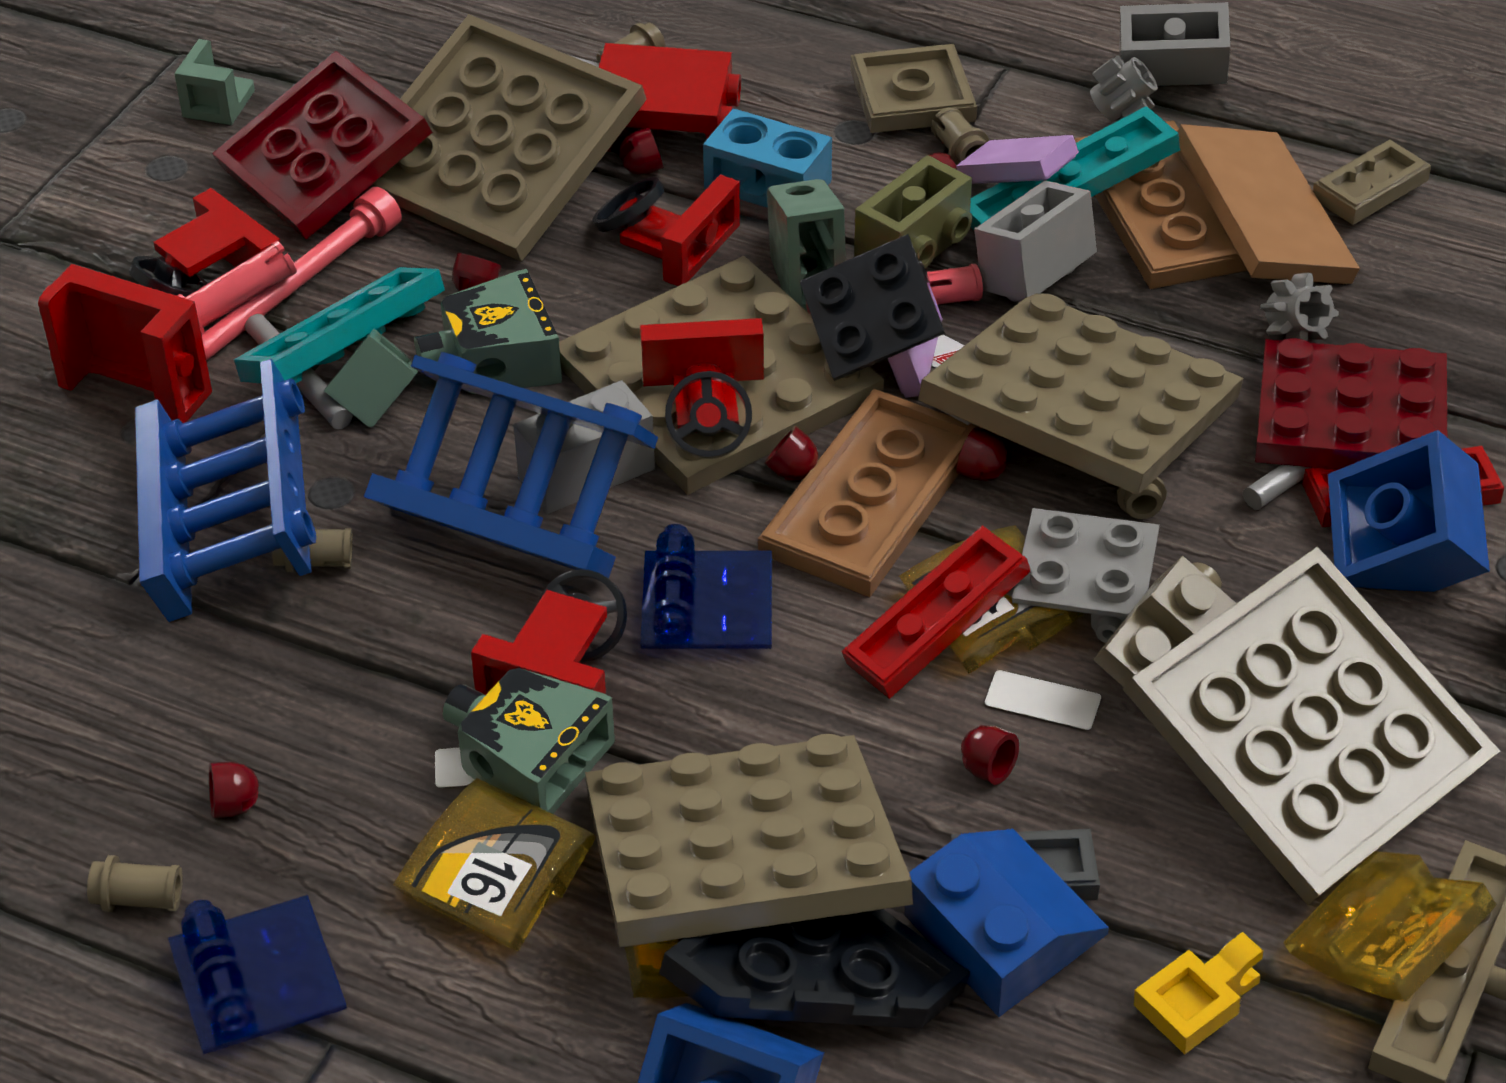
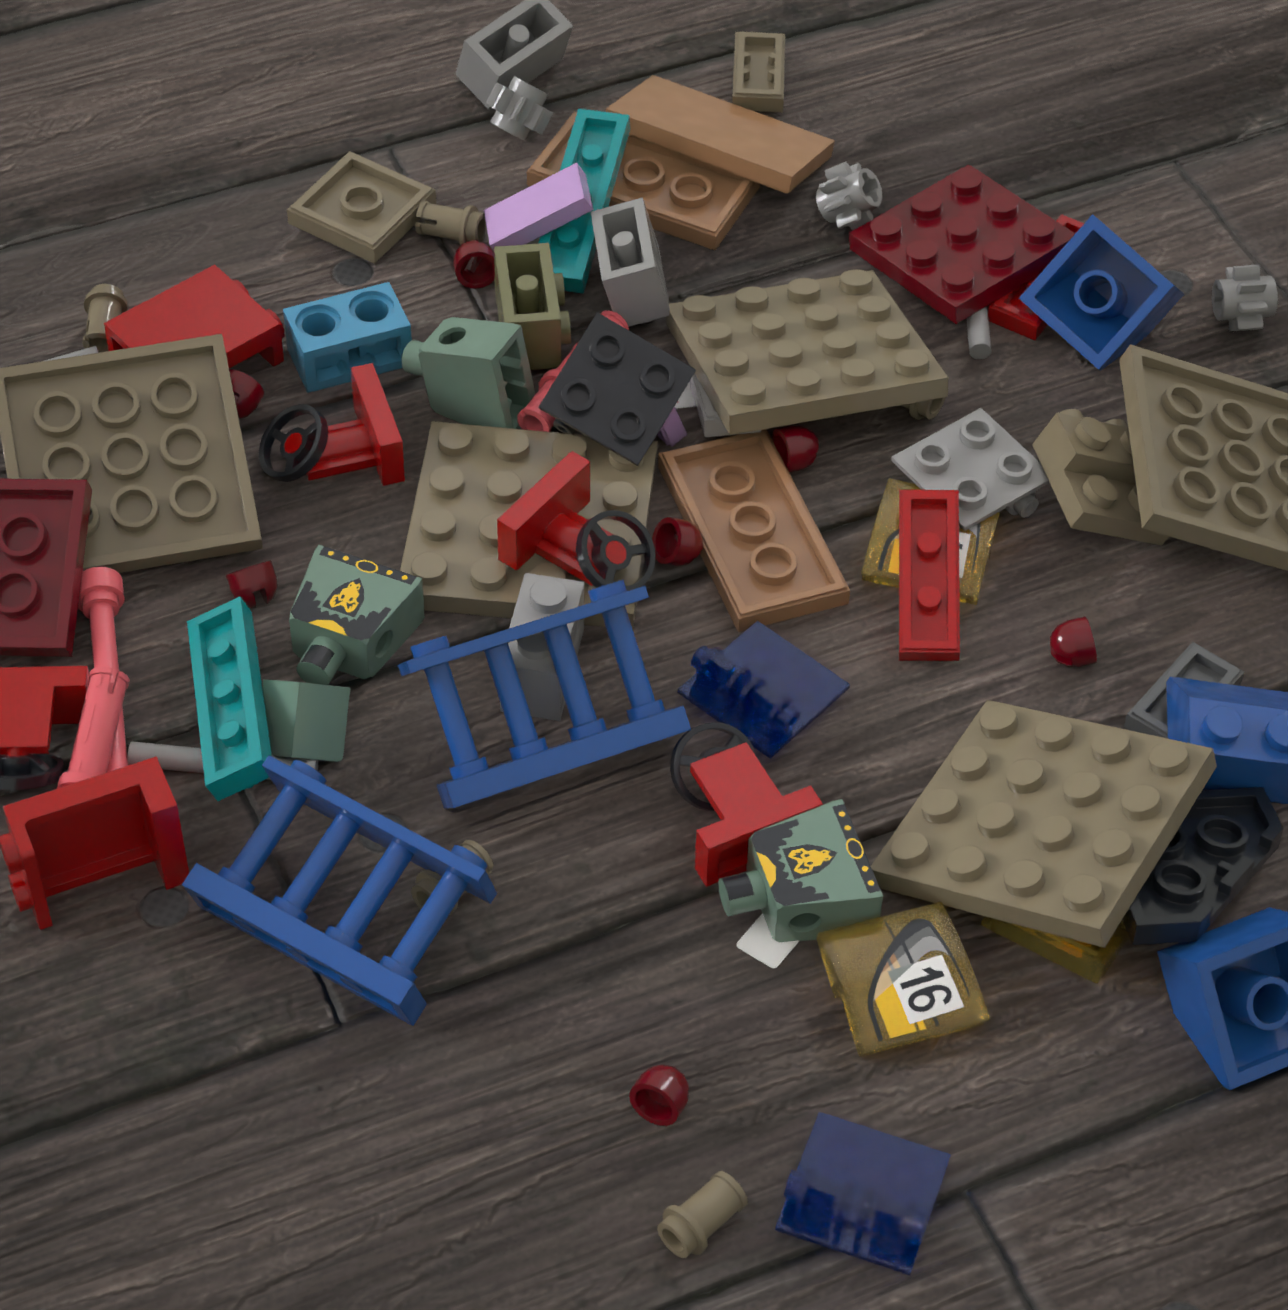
camera: 50 degrees left, 5 degrees up
(1043, 699) = (1041, 585): white sticker -> none

